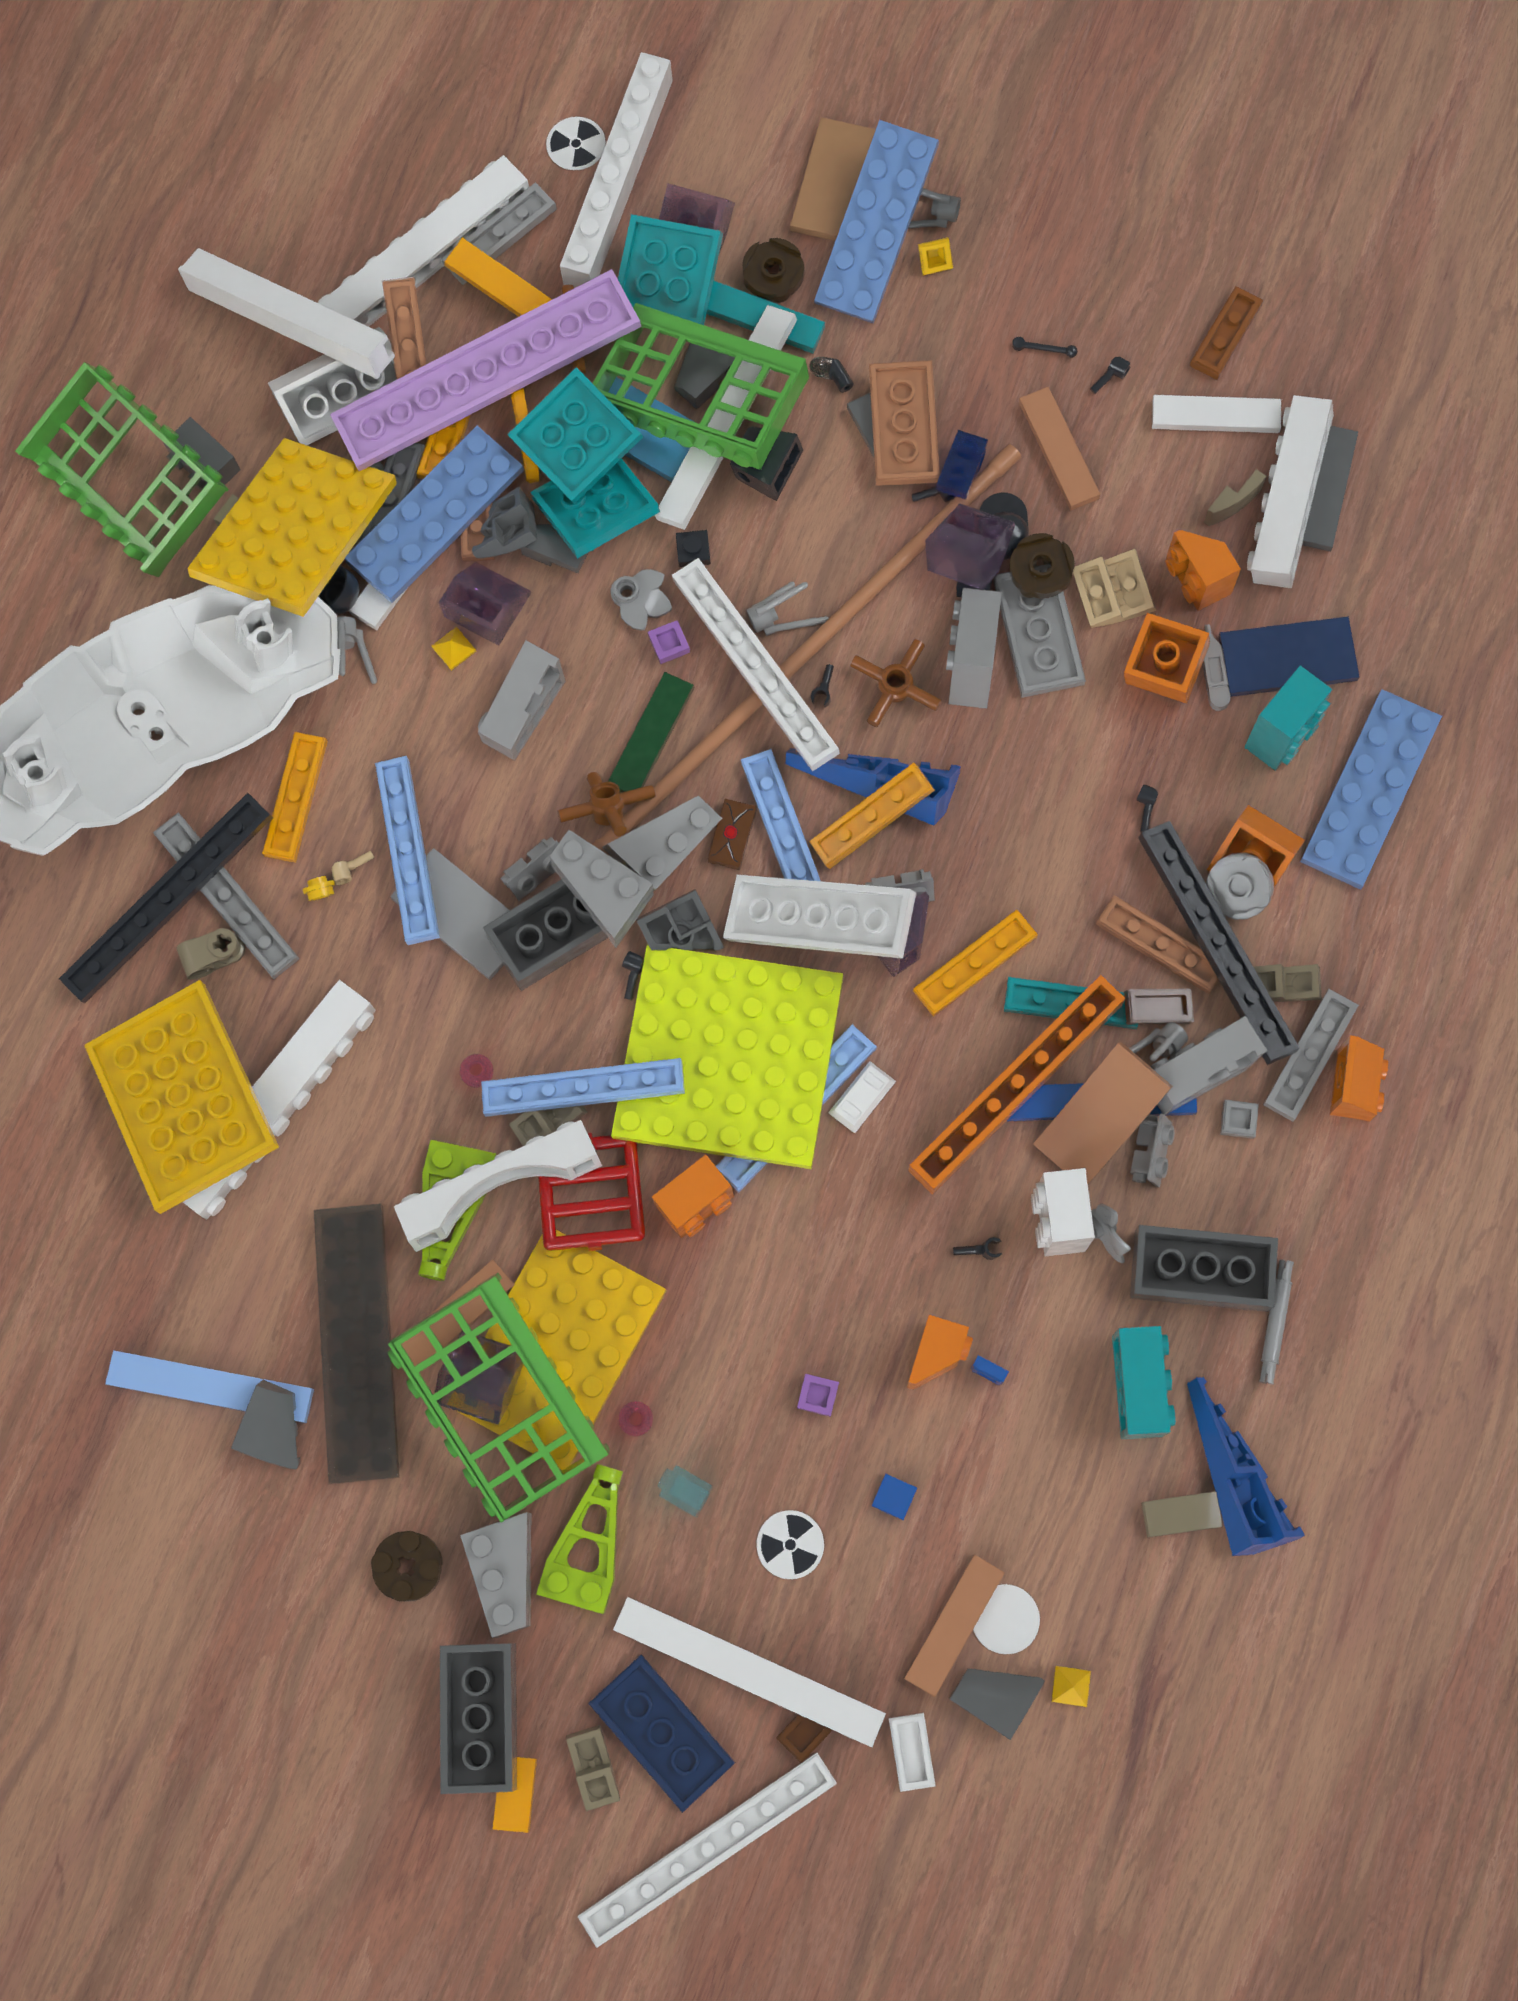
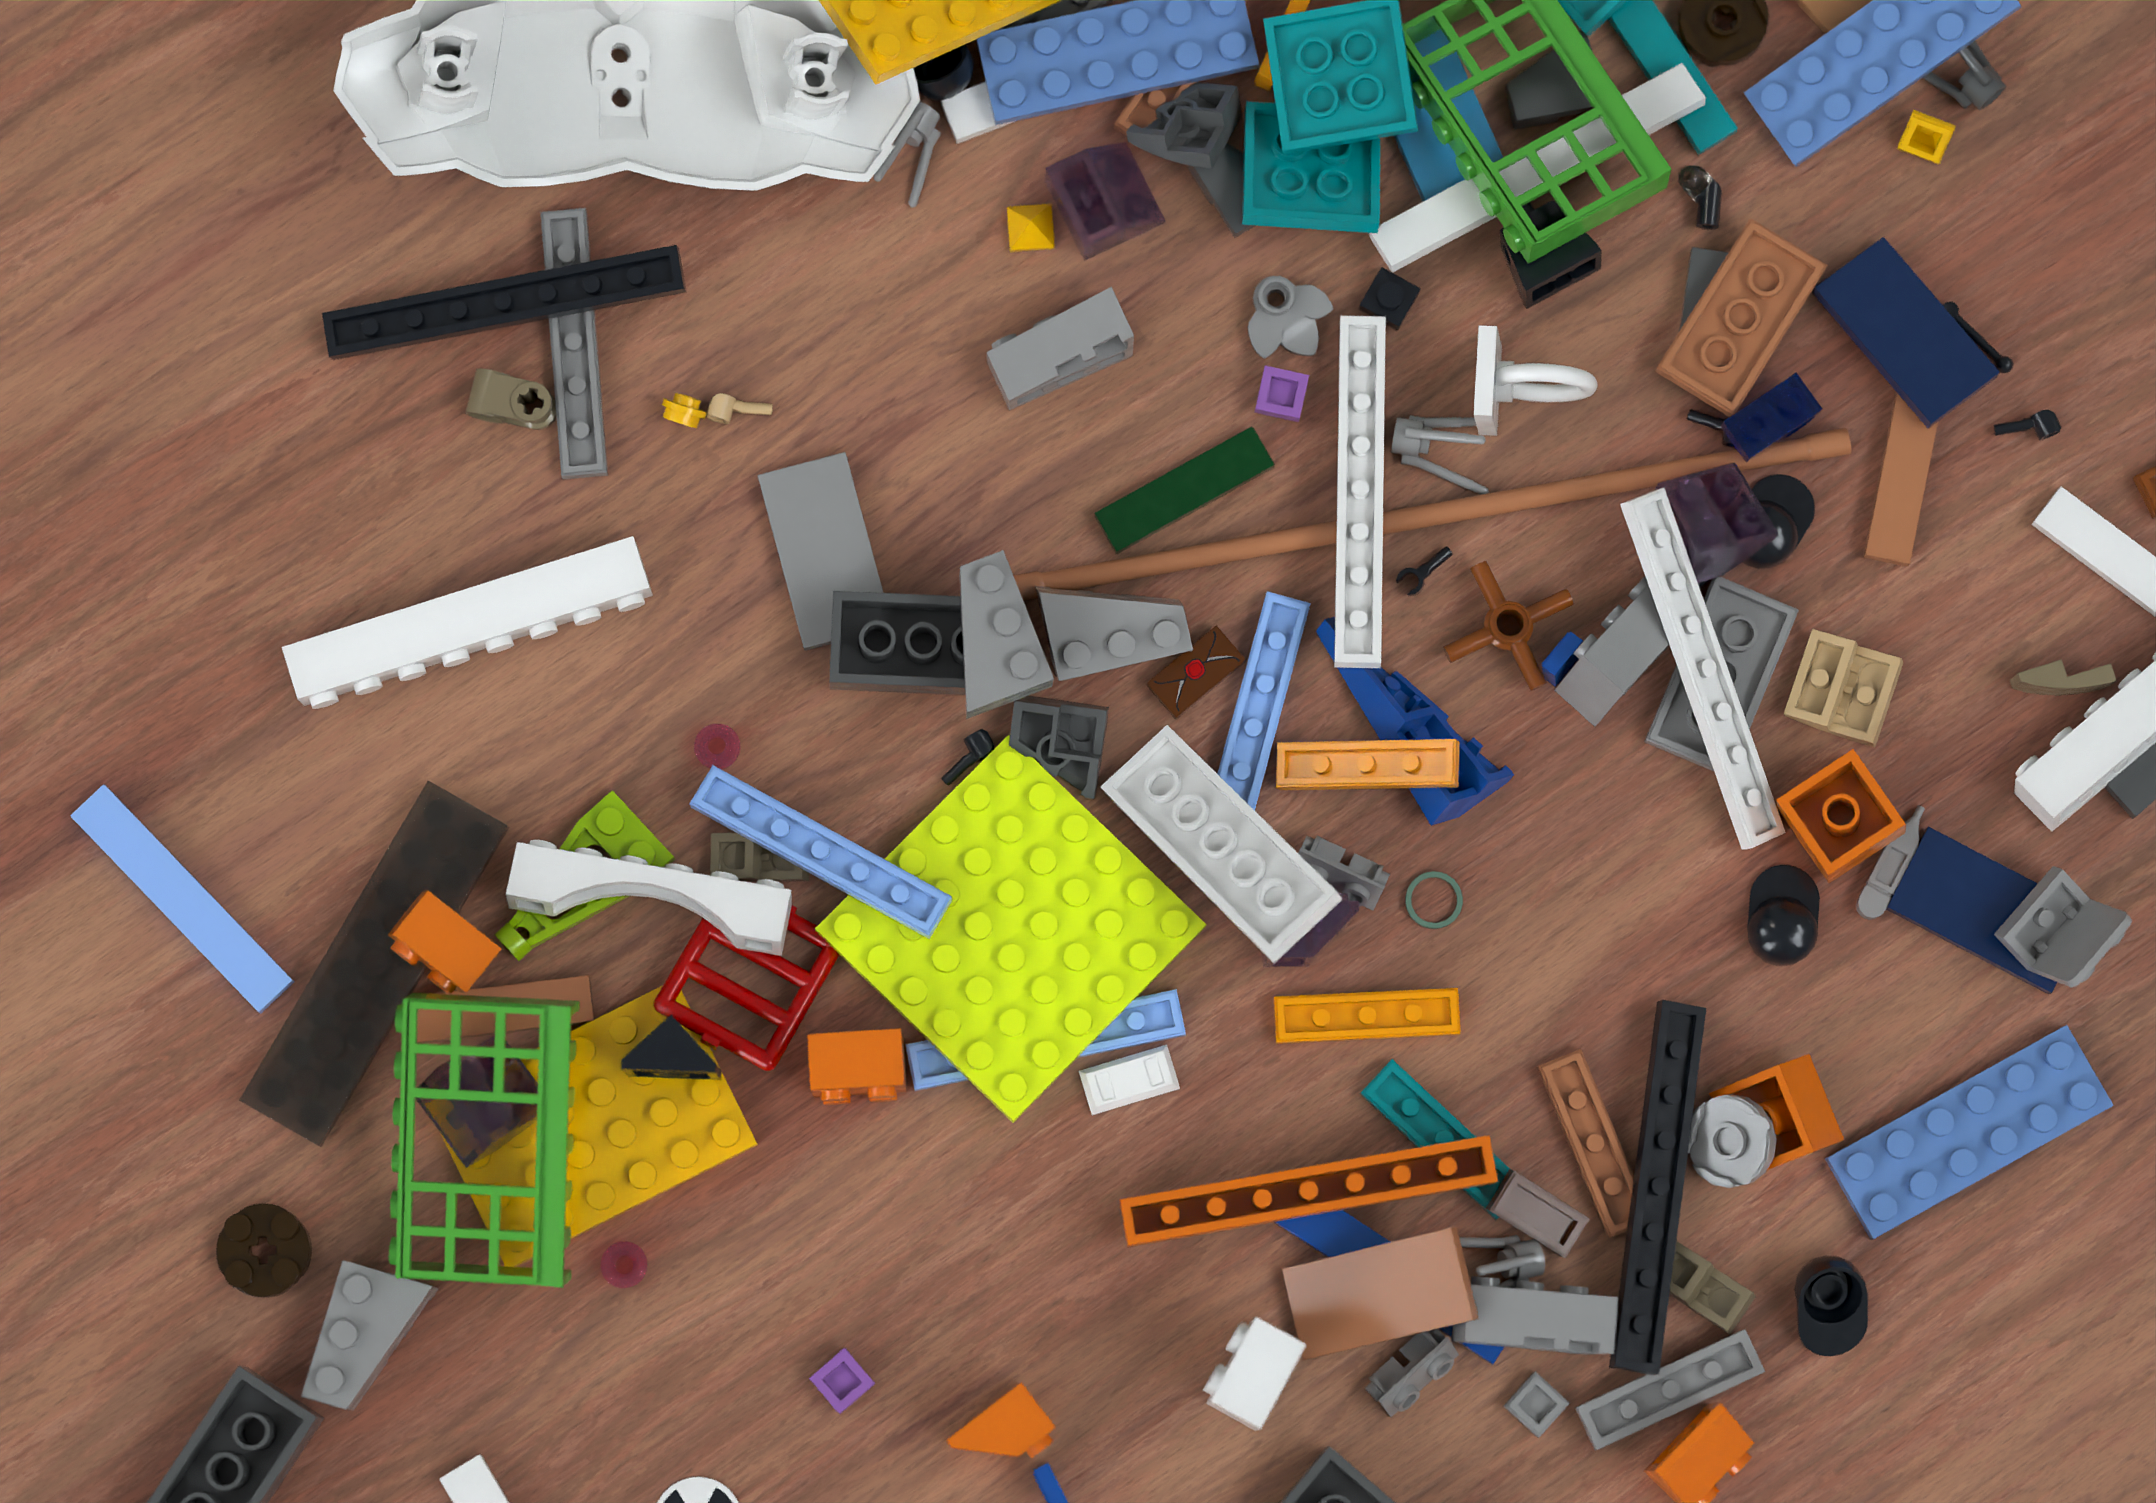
camera: 25 degrees right, 5 degrees up
(180, 1097) = (366, 548): yellow plate -> none
(269, 1426) = (217, 992): dark grey slope -> none
(295, 797) = (729, 280): light orange tile -> none
(389, 1297) = (443, 943): none -> orange brick
(407, 850) = (813, 434): light blue tile -> none
(525, 877) = (922, 558): light grey hinge -> none
(574, 1585) = (431, 1400): lime plate -> none
(577, 1267) = (670, 1054): none -> black slope
(606, 803) = (1074, 540): dark orange bar -> none
(684, 1490) = (622, 1382): clear light blue brick -> none
(789, 547) = (1506, 381): none -> white tile
(940, 679) = (1561, 659): none -> blue tile
(971, 853) = (1449, 880): none -> sand green piece
(981, 1249) = (1135, 1343): black hand -> none
(1003, 369) = (1905, 332): none -> dark blue tile
(1027, 627) = (1702, 668): none -> white tile
(1051, 551) = (1799, 593): dark brown plate -> none
(1105, 1228) = (1293, 1416): light grey plate -> none
(1147, 796) = (1704, 962): black hand -> none
(1174, 740) = (1783, 915): none -> black cap
(1202, 567) = (1961, 739): orange slope -> none
(1289, 719) = (1924, 990): teal brick -> none
(1342, 635) = (2062, 930): none -> light grey bracket
(1367, 940) = (1831, 1305): none -> black cap

